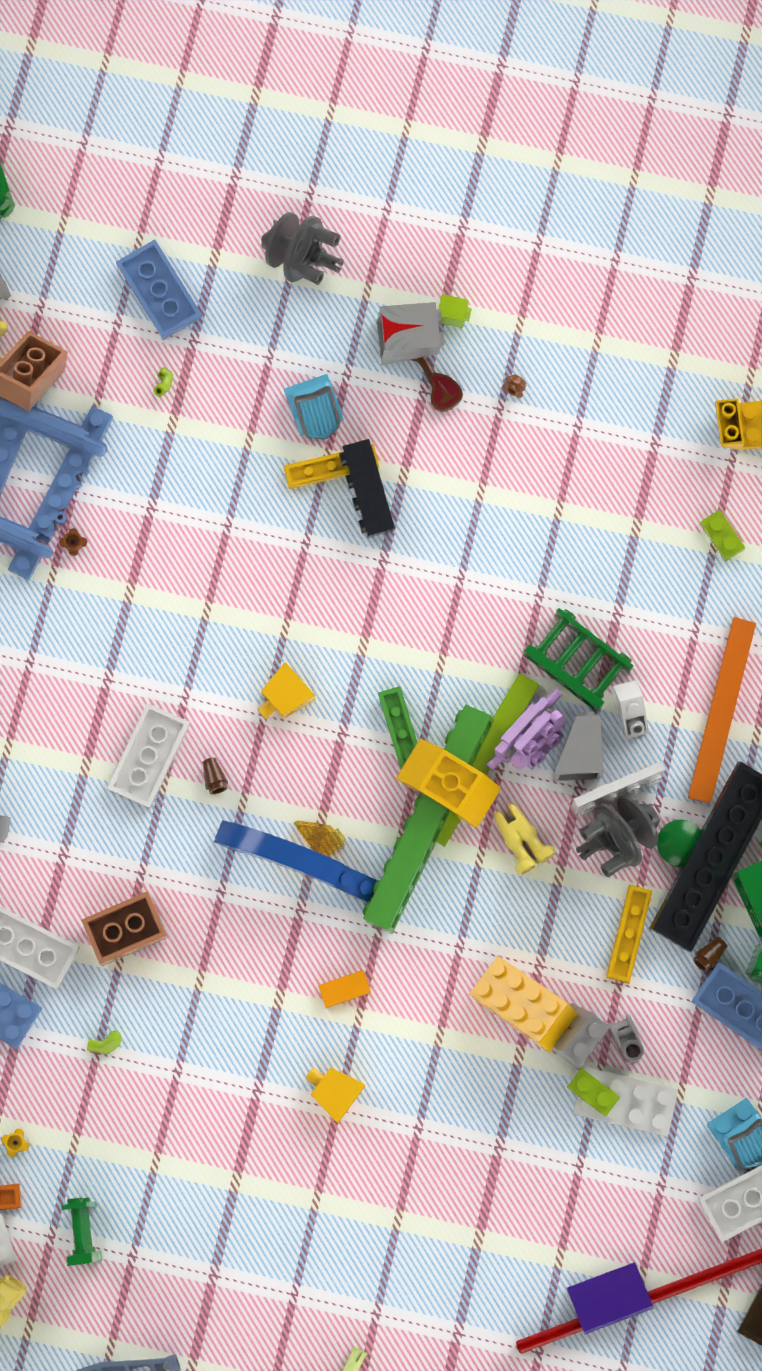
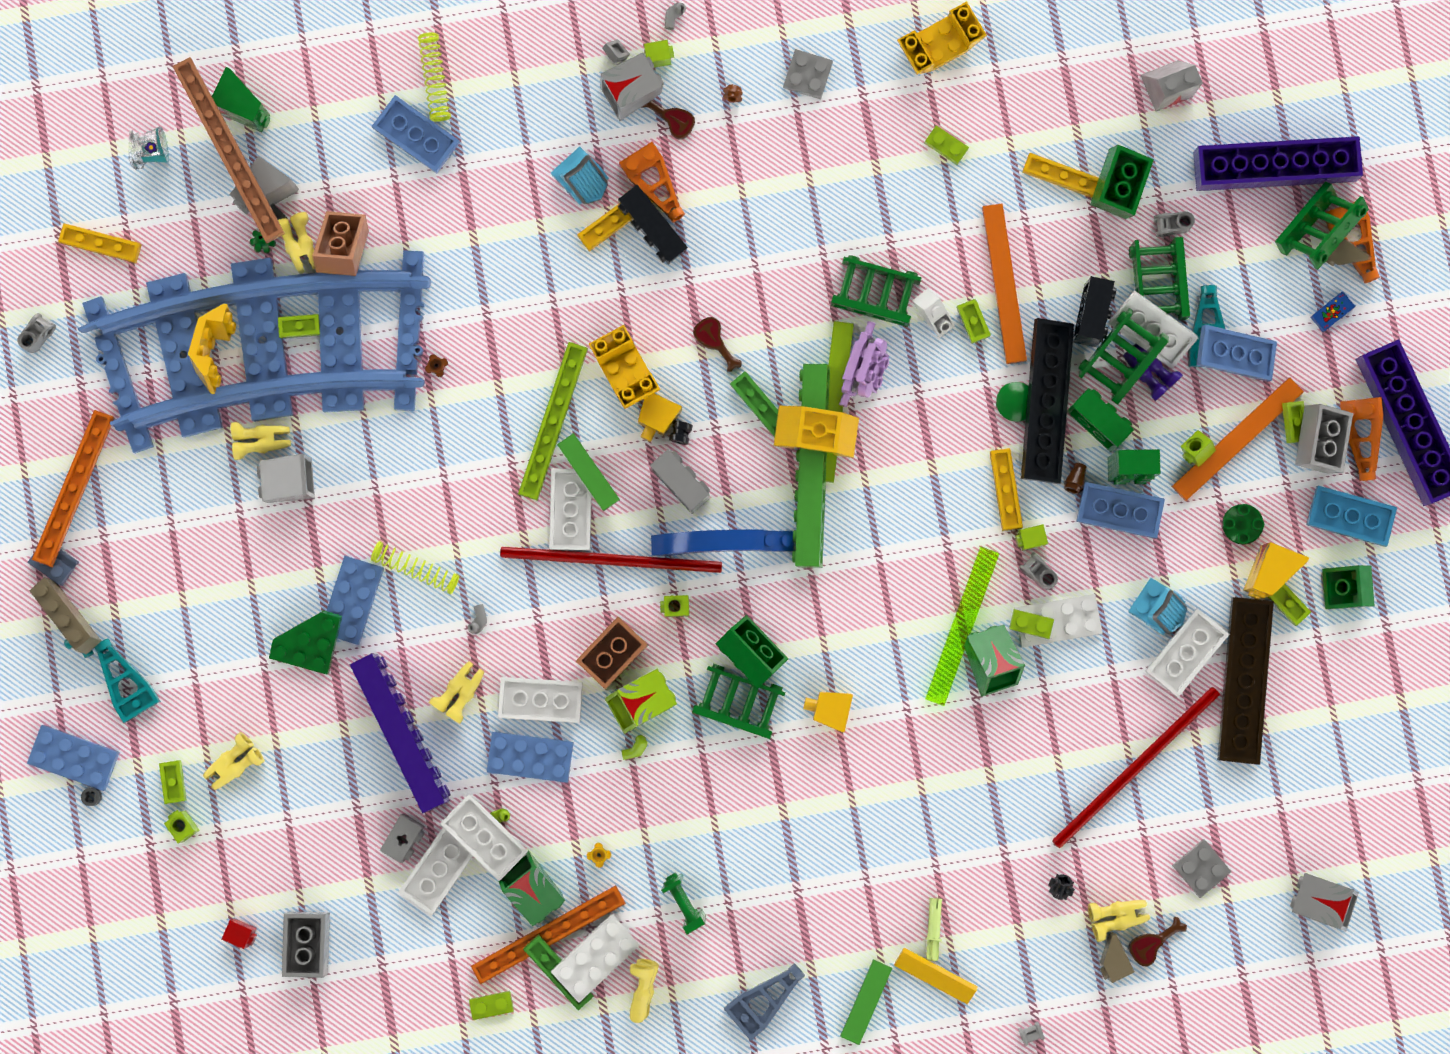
camera: 20 degrees left, 5 degrees up
(133, 994) = (641, 700): none -> lime slope
(163, 387) = (454, 207): lime arm -> none
(169, 828) = (611, 559): none -> red axle
(171, 653) = (553, 421): none -> lime tile
(184, 723) = (588, 472): none -> bright green tile
(186, 279) = (429, 40): none -> neon yellow piece
(214, 777) = (630, 505): reddish brown cone -> none
(216, 1048) = (723, 714): none -> green fence
(225, 911) = (684, 609): none -> lime brick
(271, 626) = (624, 367): none -> yellow slope
(275, 991) = (751, 651): none -> green brick
(279, 774) = (680, 480): none -> light grey brick
(300, 248) = (515, 53): dark grey piece -> none
(302, 723) = (680, 432): none -> black wheel
(321, 837) = (734, 516): clear yellow slope -> none
(344, 989) = (803, 626): light orange tile -> none
(378, 630) = (708, 334): none -> reddish brown piece
(386, 417) = (642, 161): none -> orange plate
(409, 289) = (616, 51): none -> light grey plate
(486, 275) = (673, 13): none -> light grey arm
(503, 1078) = (962, 626): none -> clear neon green tile
(519, 831) = (889, 444): light yellow piece -> none
(523, 1004) = (949, 579): yellow brick -> none
(535, 1114) = (993, 660): none -> slope
(581, 1037) = (1000, 585): light grey slope -> none
(583, 750) = (910, 361): light grey slope -> none
(604, 398) = (808, 74): none -> light grey plate
(610, 1298) = (1110, 776): dark purple tile -> none
(620, 833) = (968, 414): dark grey piece -> none
(627, 785) = (957, 374): white plate -> none
(634, 998) = (1031, 537): none -> lime brick
(670, 736) = (973, 321): none -> lime plate

